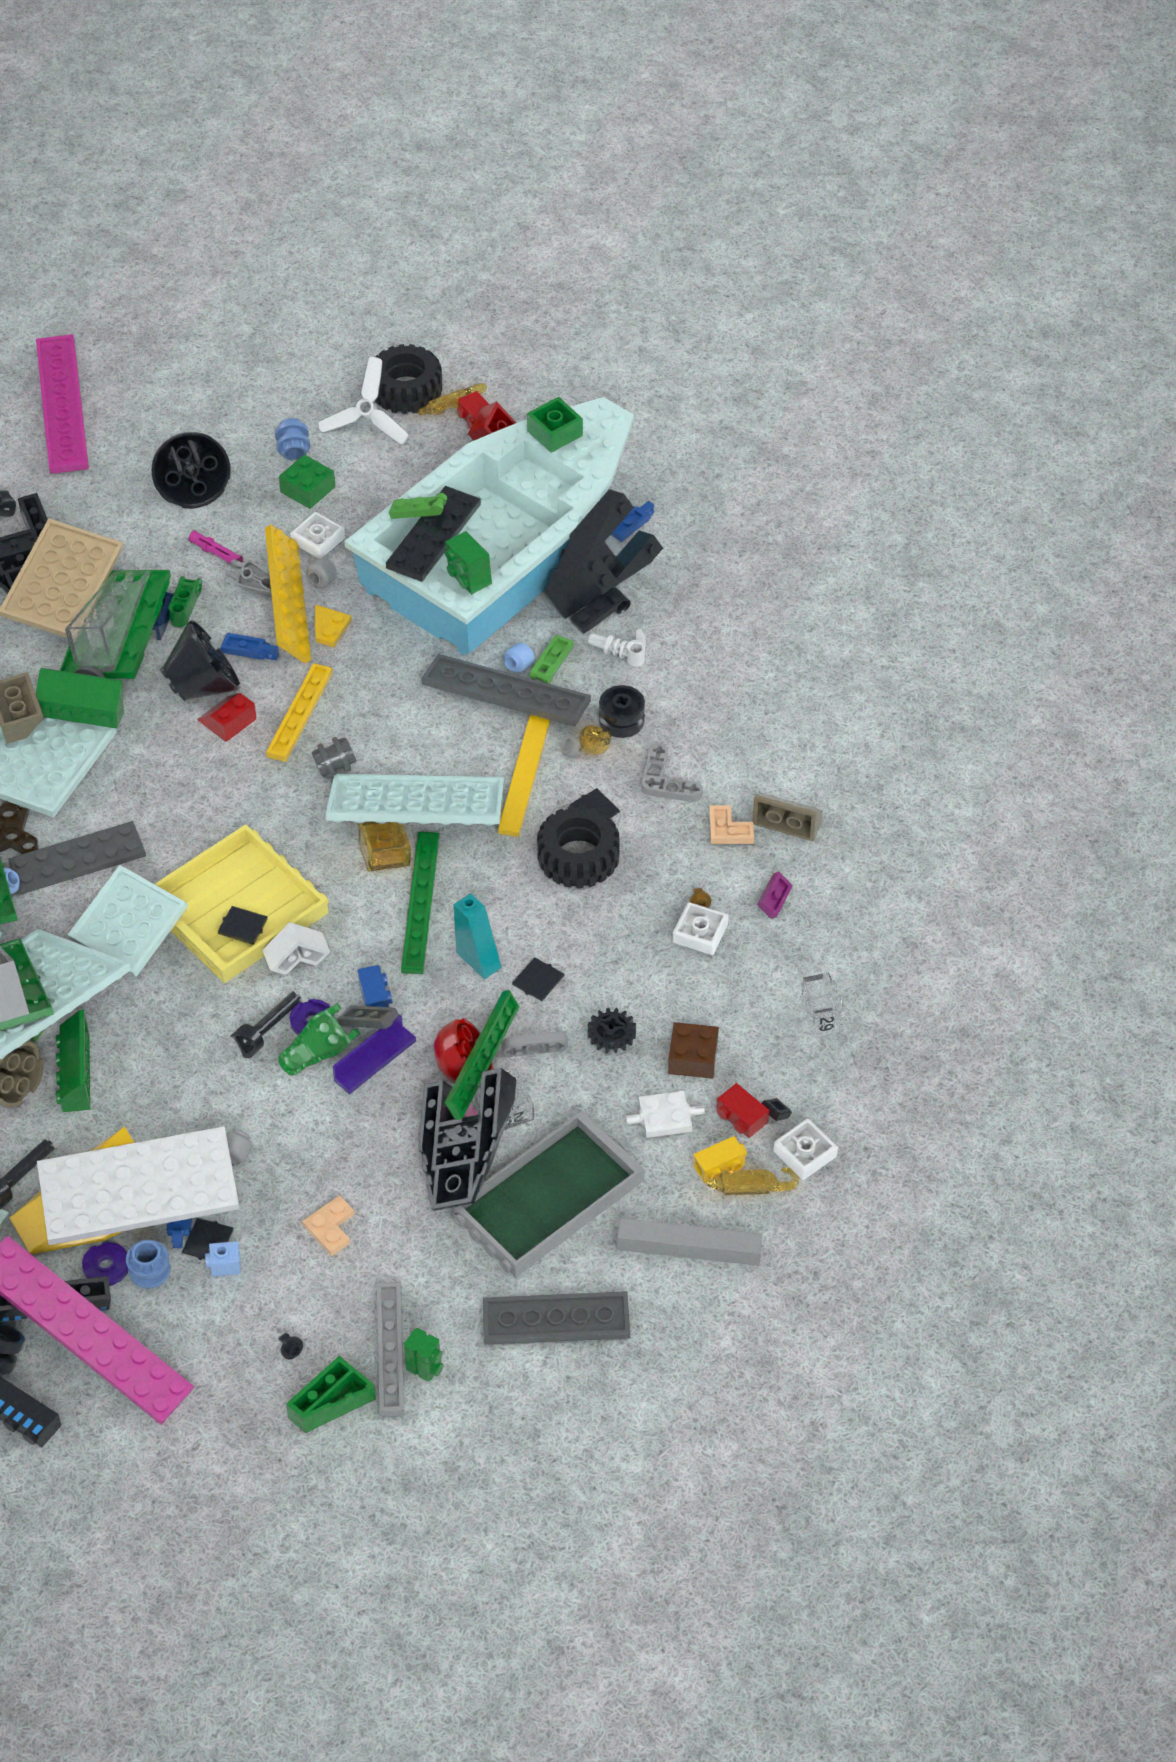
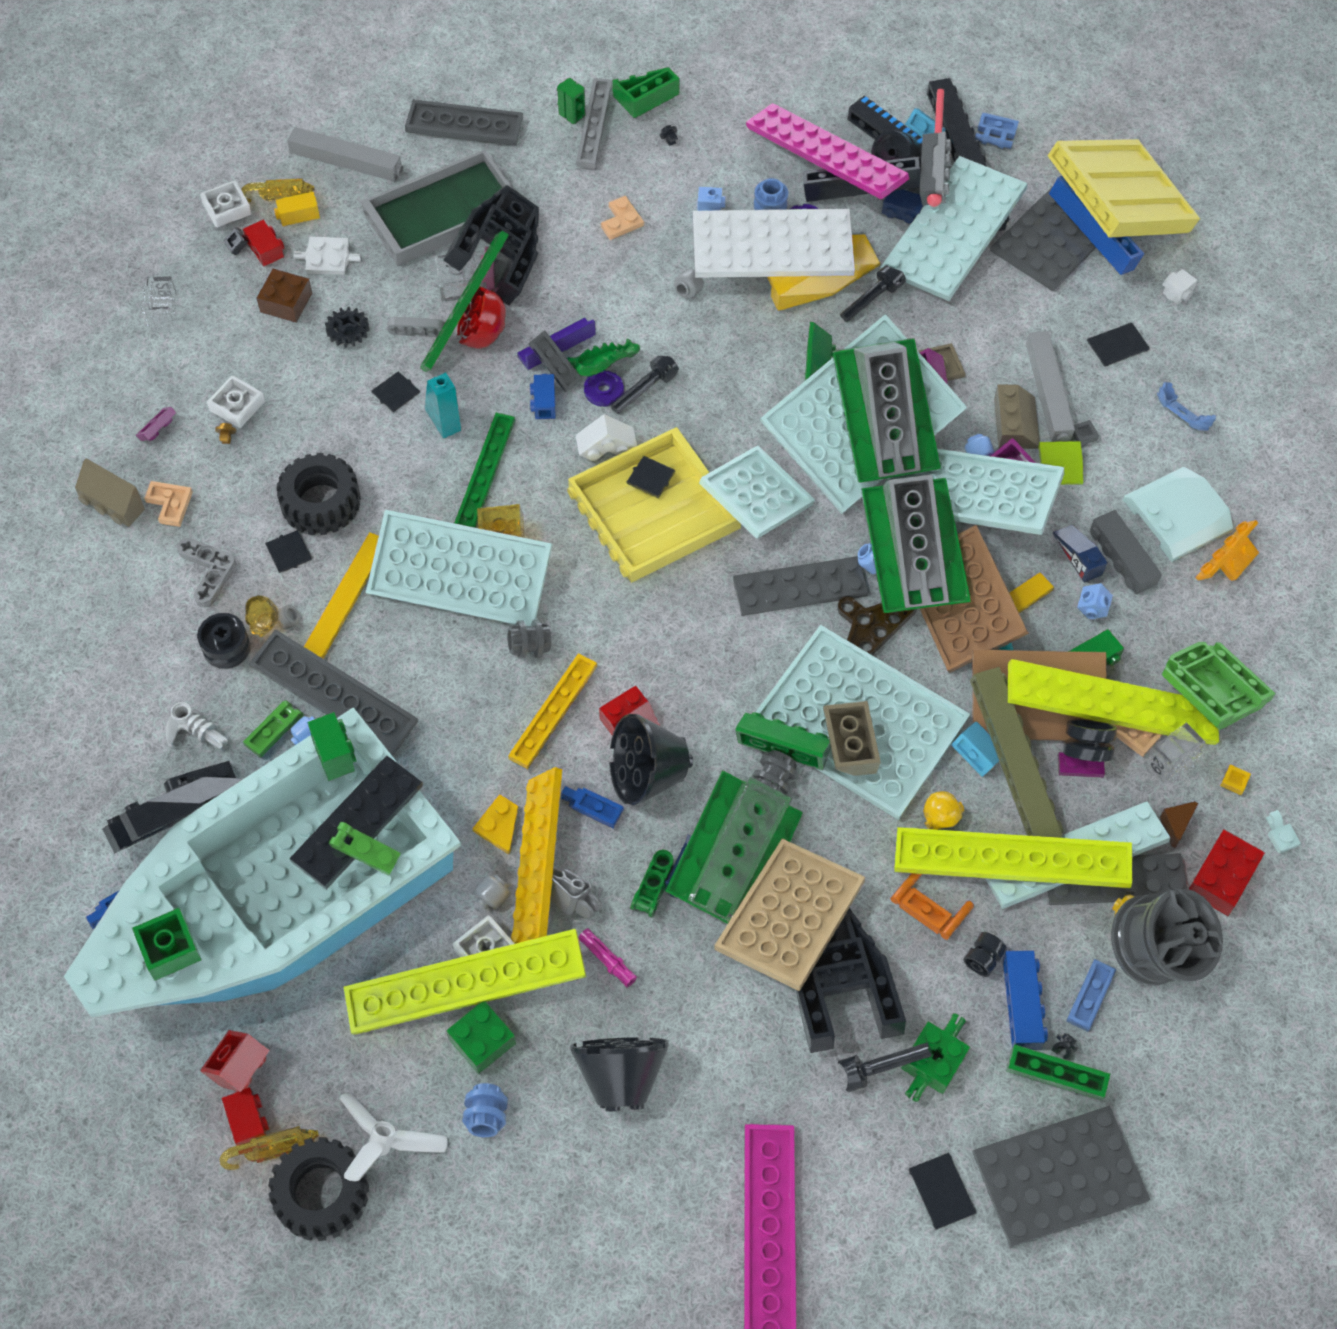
camera: 170 degrees left, 10 degrees up
(319, 501) = (464, 981): none -> neon yellow plate

